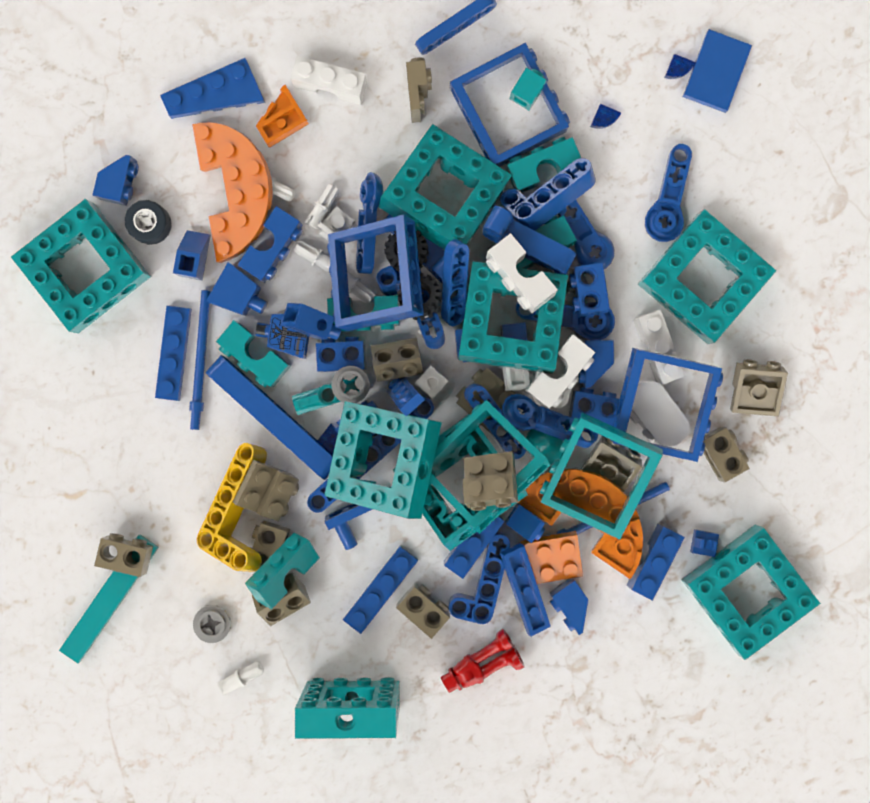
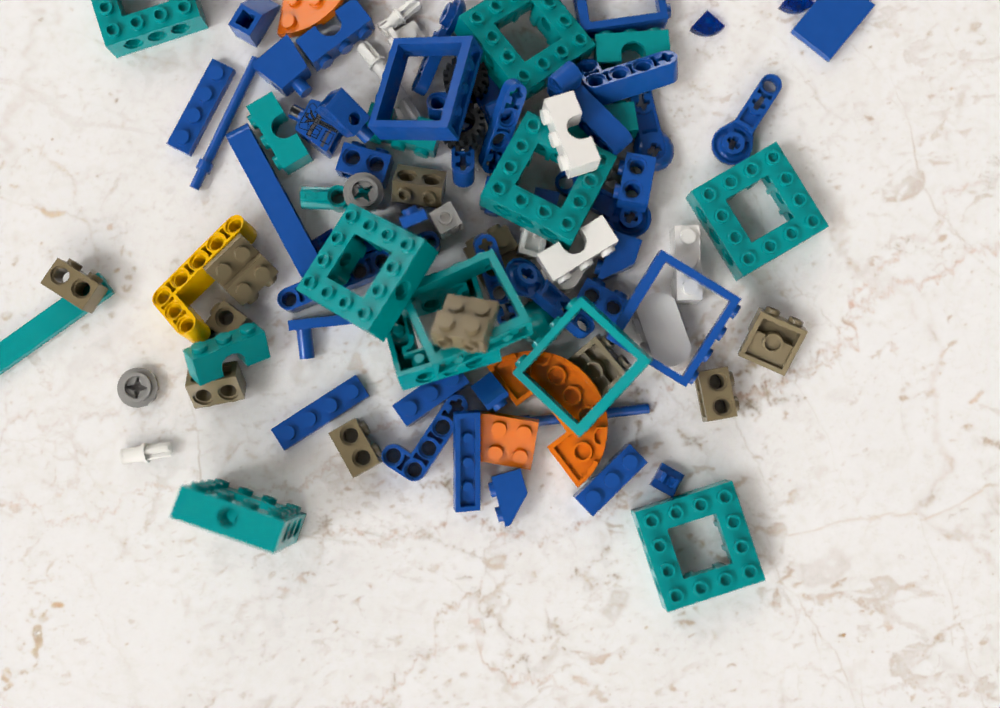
camera: 20 degrees right, 5 degrees down
(468, 670) = (380, 526): red piece -> none

